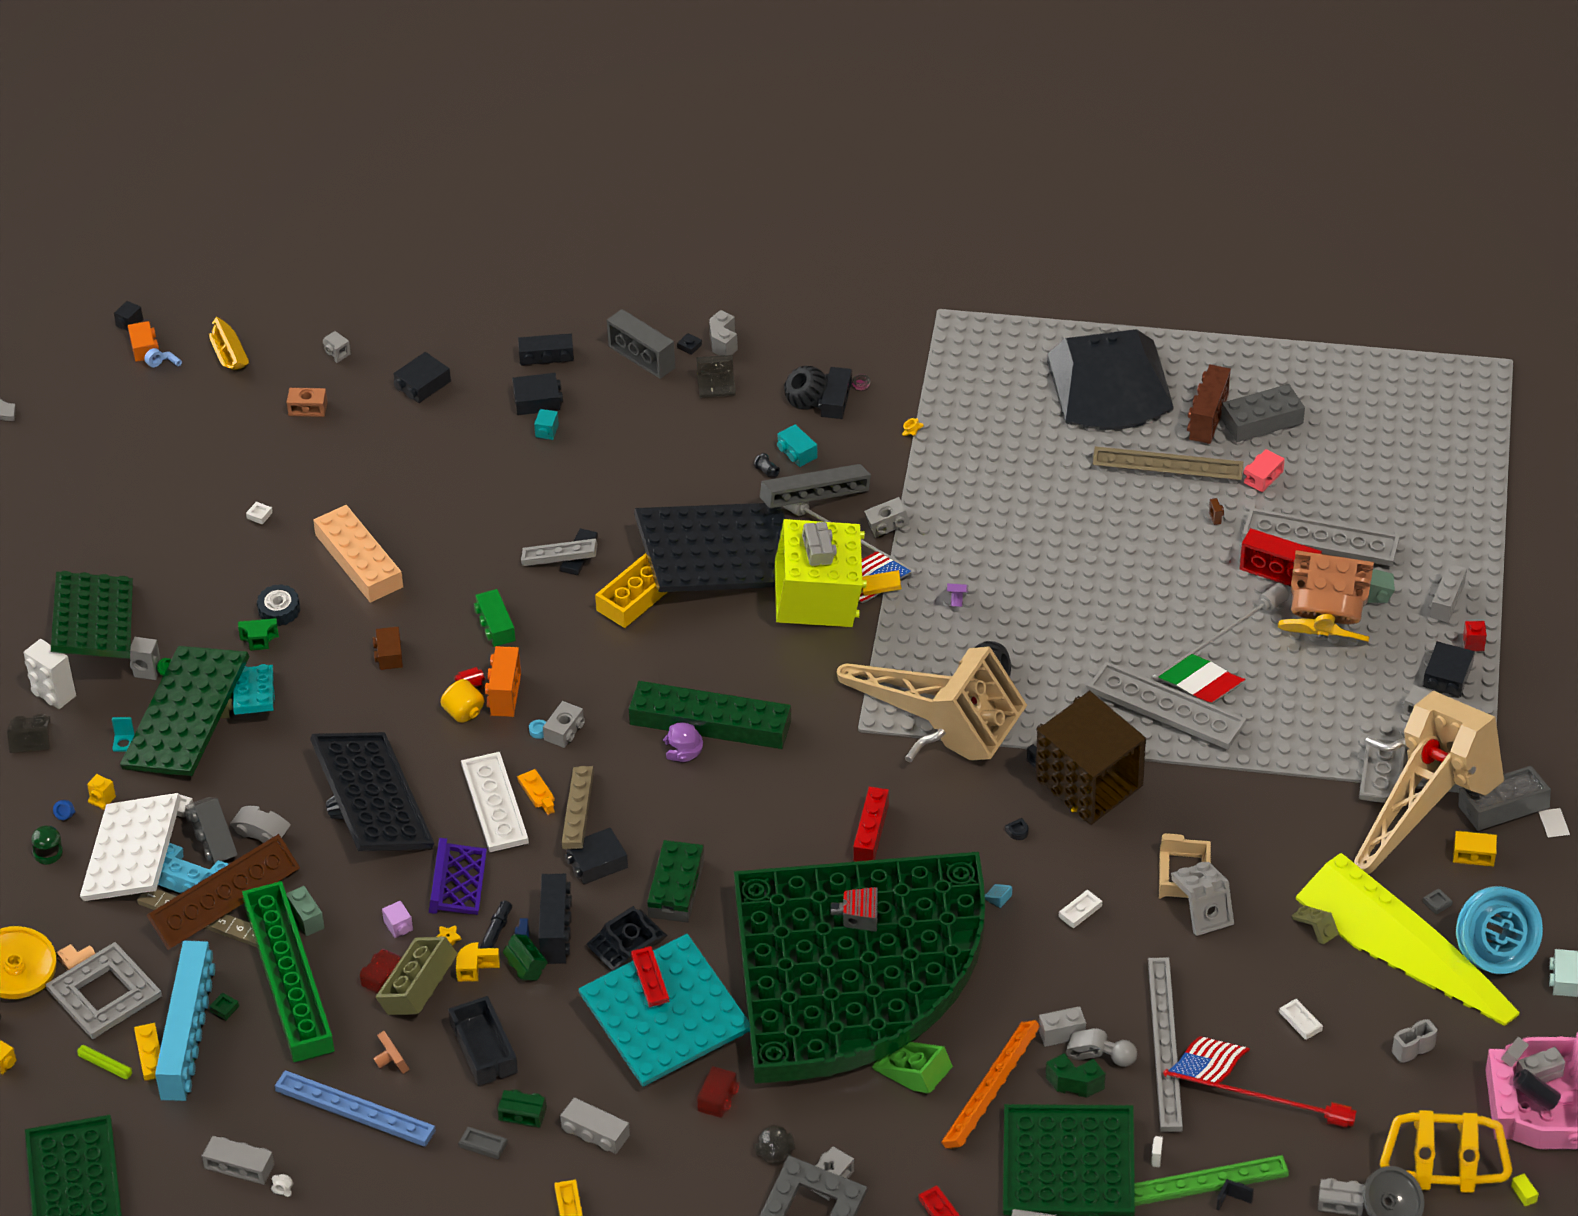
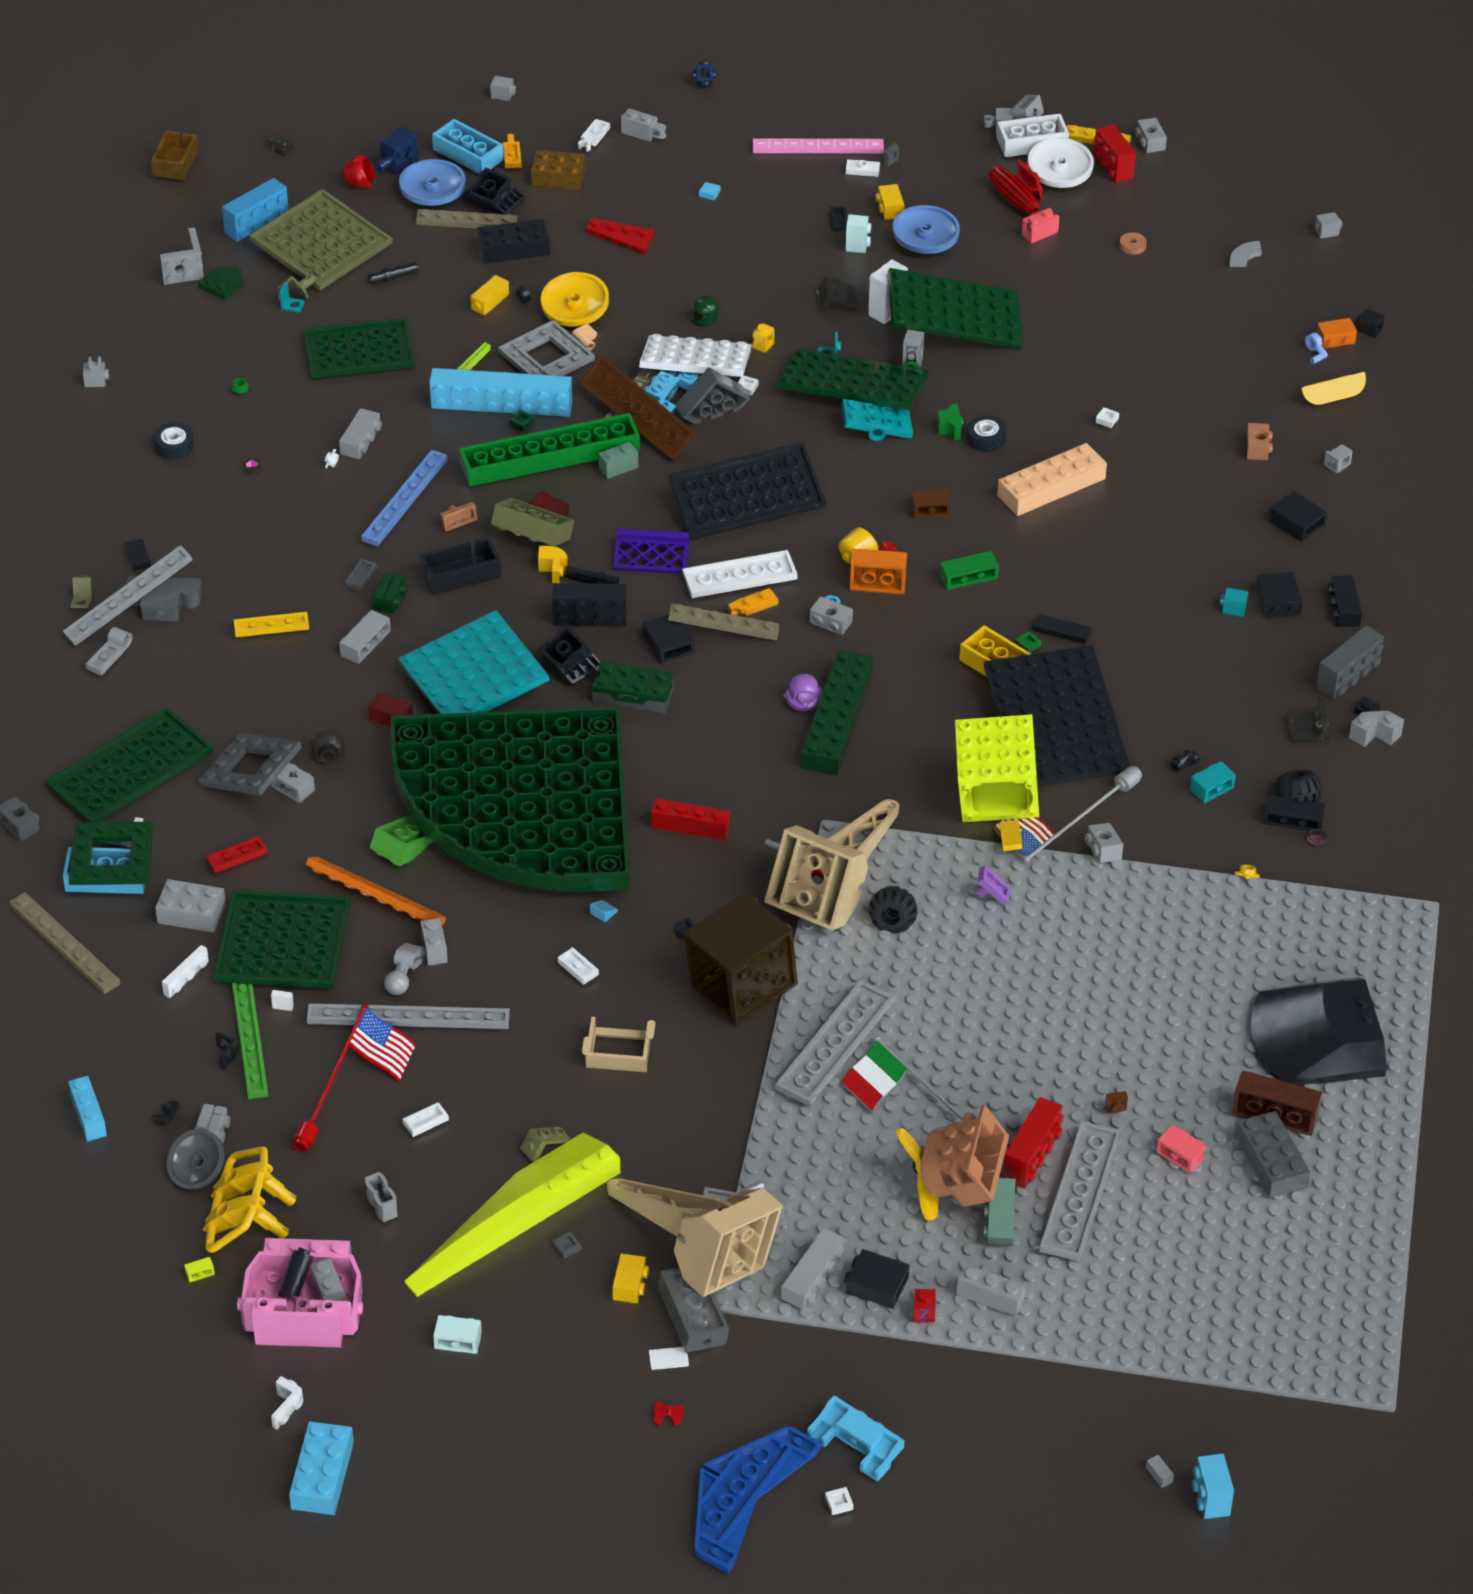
camera: 90 degrees right, 0 degrees up
(63, 810) = (744, 319): blue tile -> none
(258, 824) = (716, 429): light grey brick -> none
(397, 919) = (605, 516): lavender brick -> none
(449, 931) = (586, 549): yellow plate -> none
(524, 957) = (542, 591): dark green brick -> none
(559, 552) = (1052, 609): light grey plate -> none
(602, 574) = (1028, 642): none -> green plate
(650, 976) = (496, 647): red plate -> none
(815, 485) = (1141, 784): dark grey brick -> none
(818, 543) = (993, 735): light grey brick -> none
(858, 909) = (557, 782): flat silver torso -> none
(1084, 1079) = (371, 948): dark green brick -> none
(1168, 463) = (1190, 1067): dark tan plate -> none
(1206, 889) = (572, 1039): light grey bracket -> none
(1514, 1051) = (338, 1255): light grey piece -> none
(1520, 933) = (496, 1263): medium azure wheel -> none

